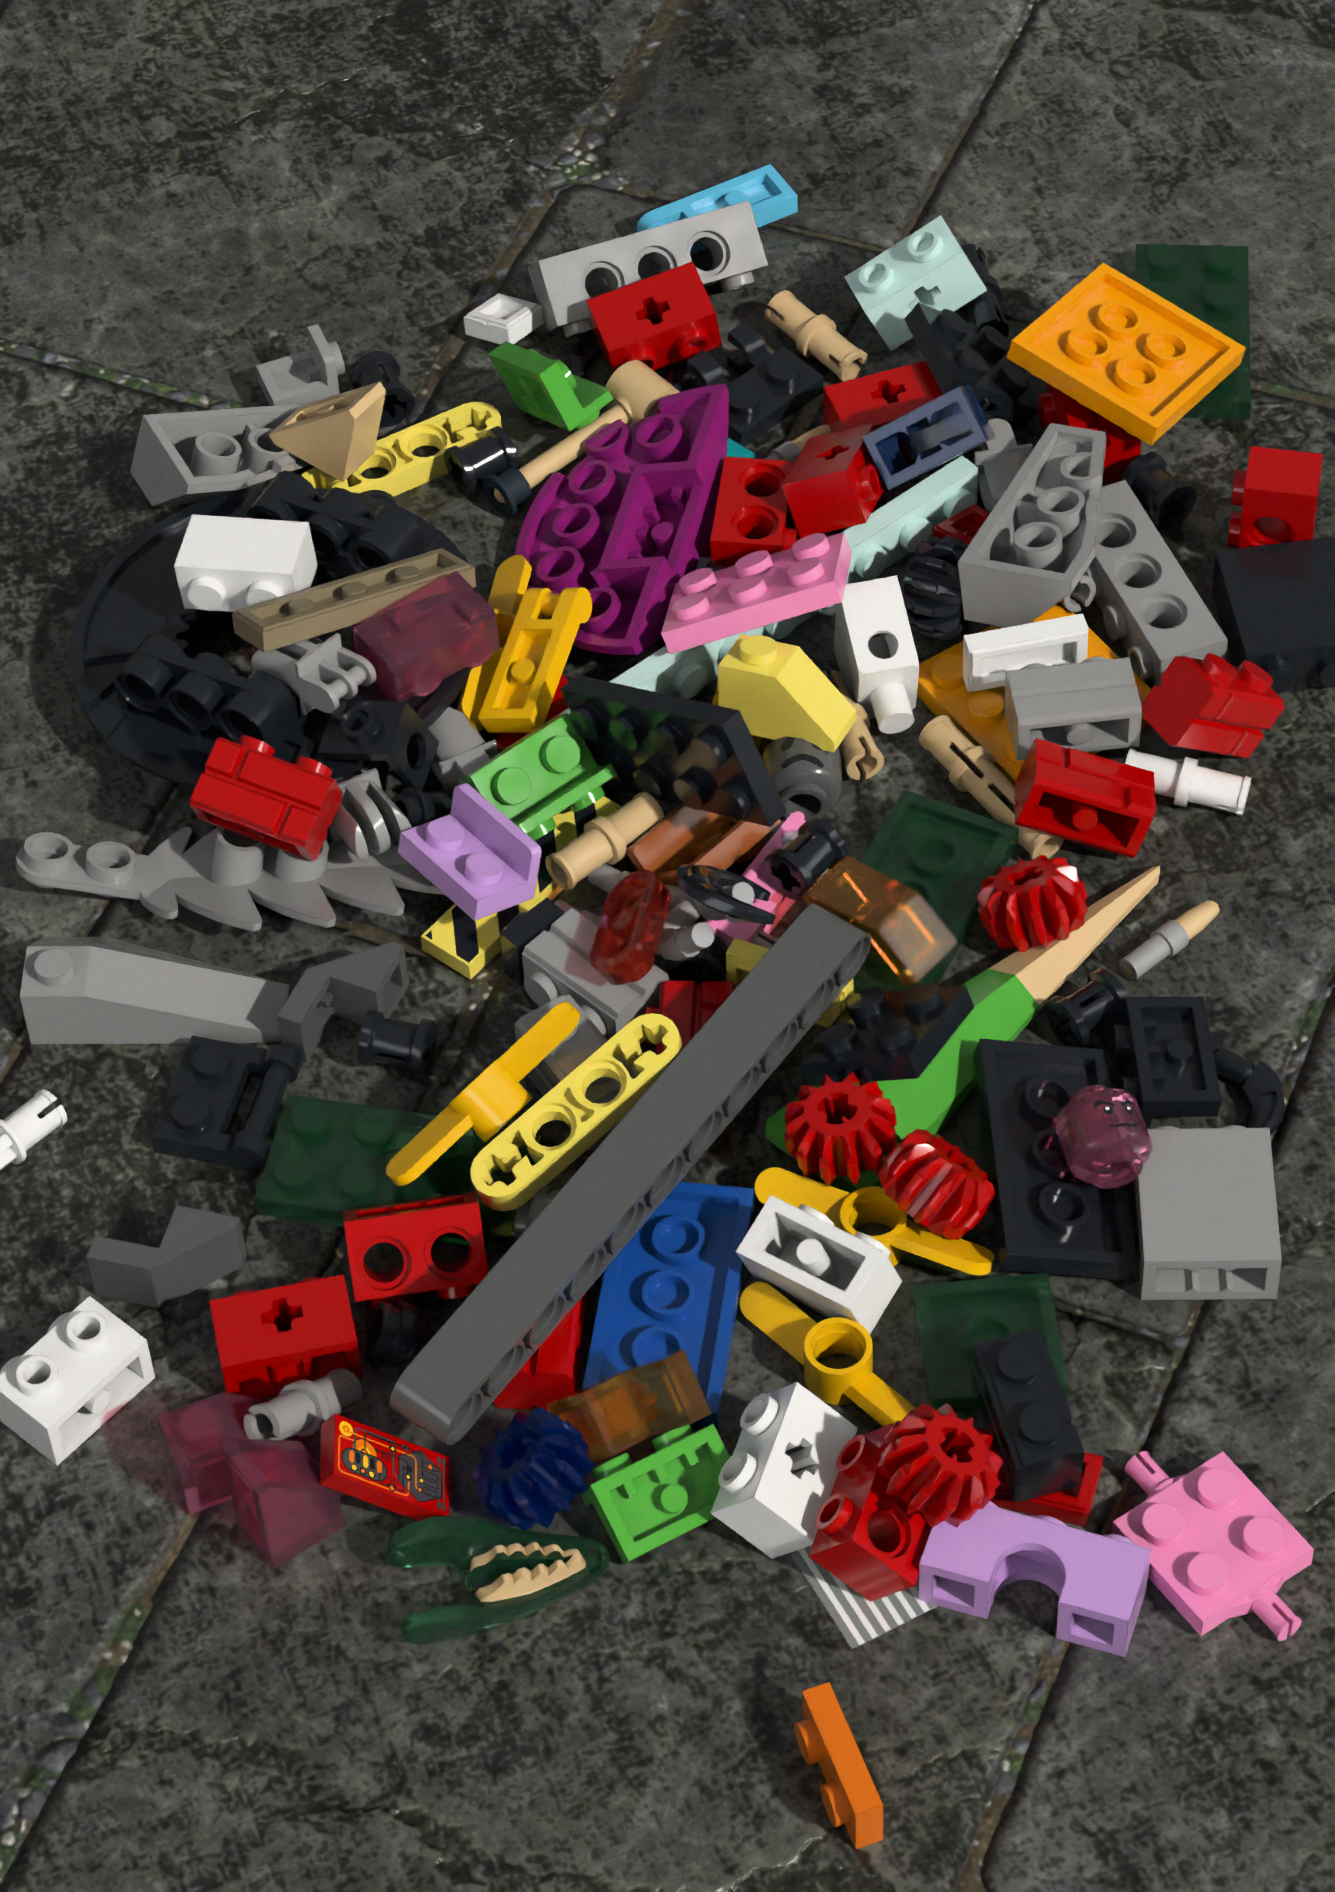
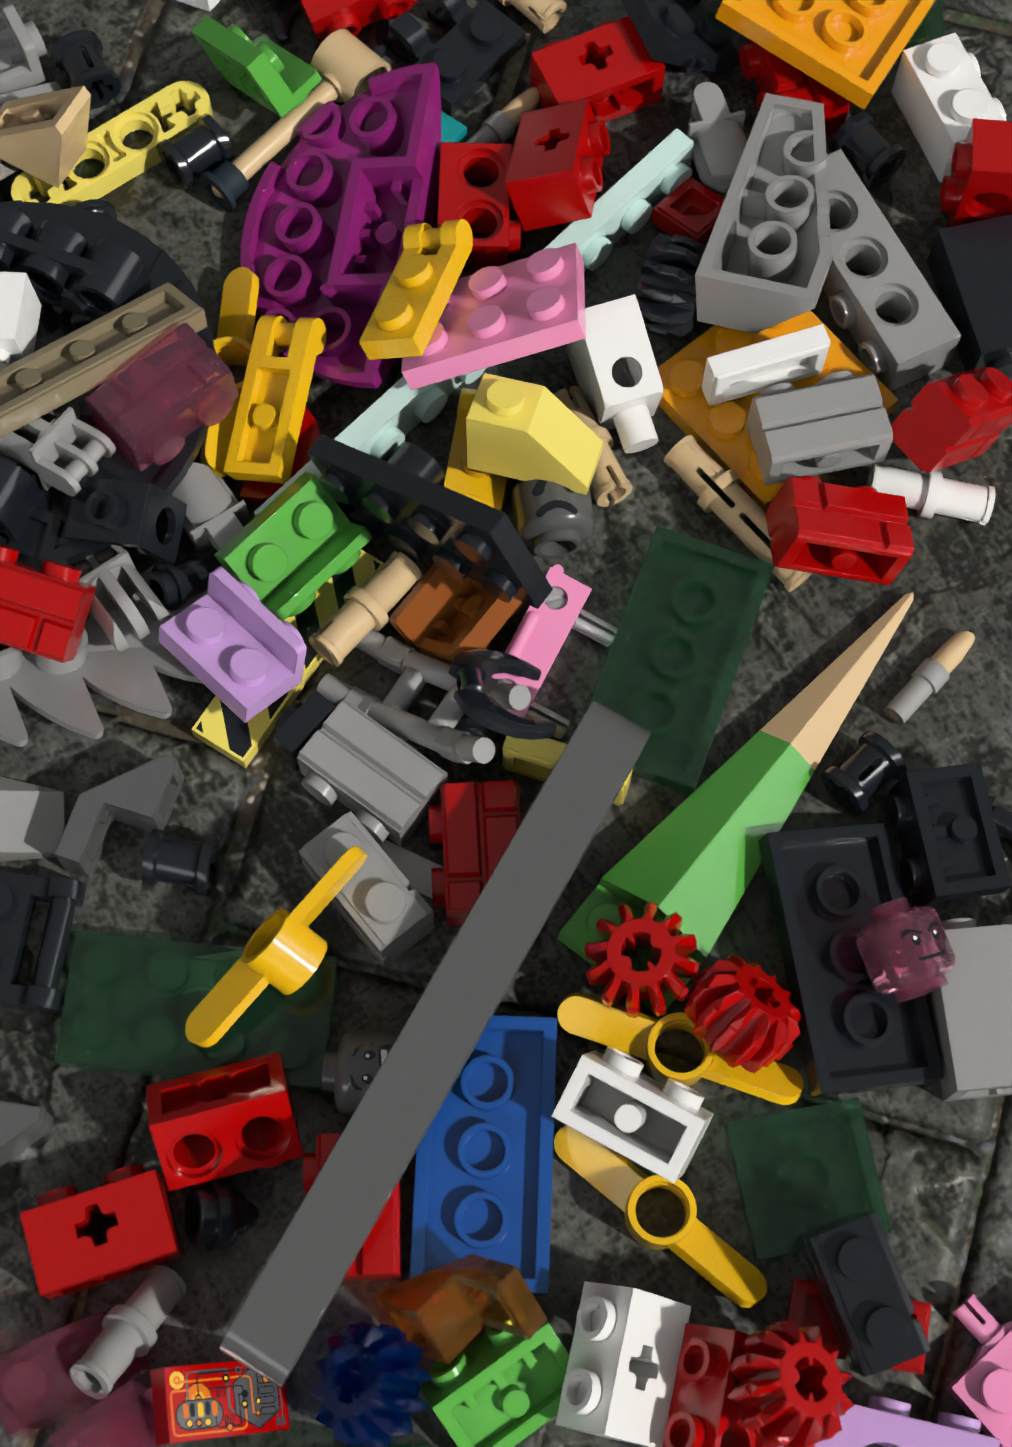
camera: 10 degrees left, 20 degrees up
(568, 1104) = (369, 960): light yellow beam -> none
(630, 928) = (406, 735): clear red plate -> none
(685, 566) = (417, 290): none -> yellow plate
(805, 858) = (573, 630): black bush -> none
(887, 1034) = (675, 839): black plate -> none
(893, 914) = (654, 692): clear orange slope -> none
(931, 434) = (656, 113): dark blue torso -> none
(1032, 903) = (799, 657): red gear -> none
(1224, 433) = (940, 96): none -> white brick

